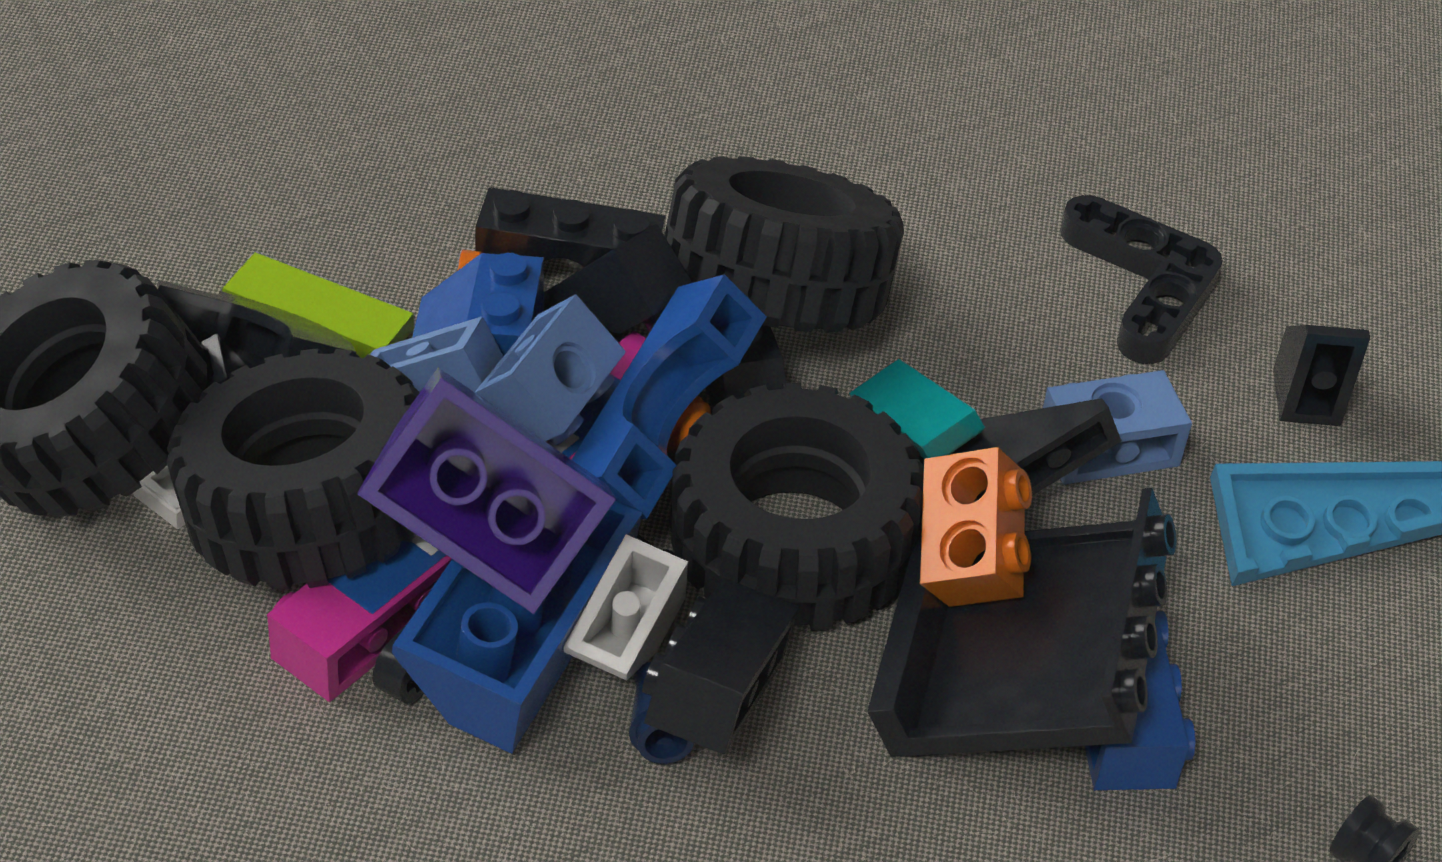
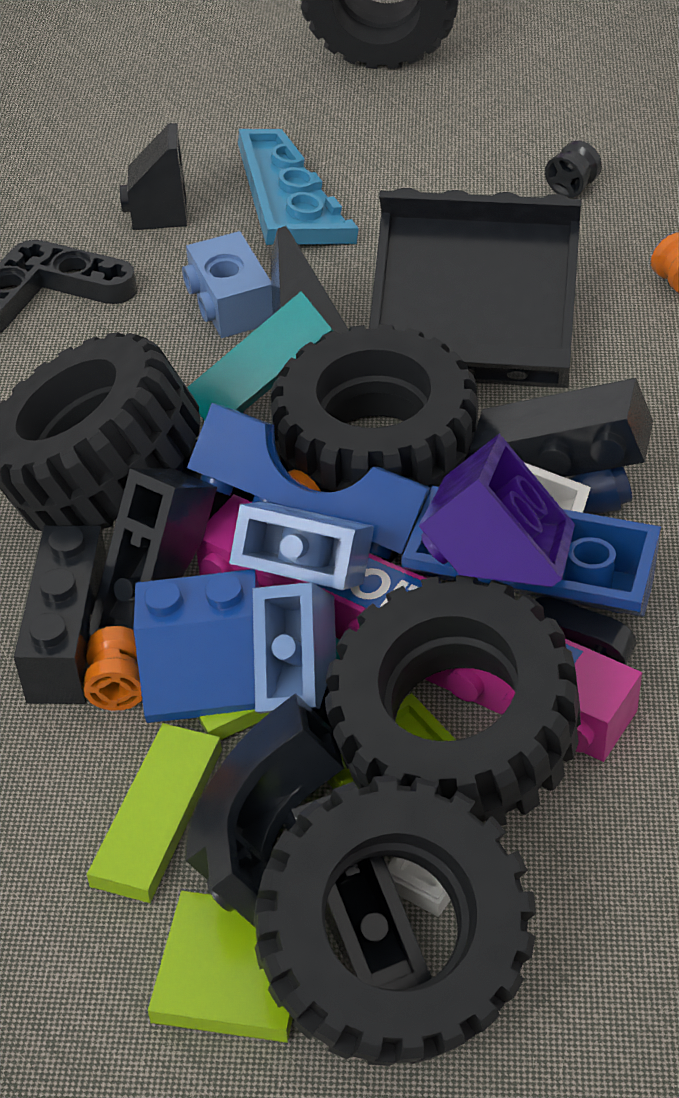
camera: 90 degrees left, 0 degrees up
(960, 529) = (399, 291): orange brick -> none

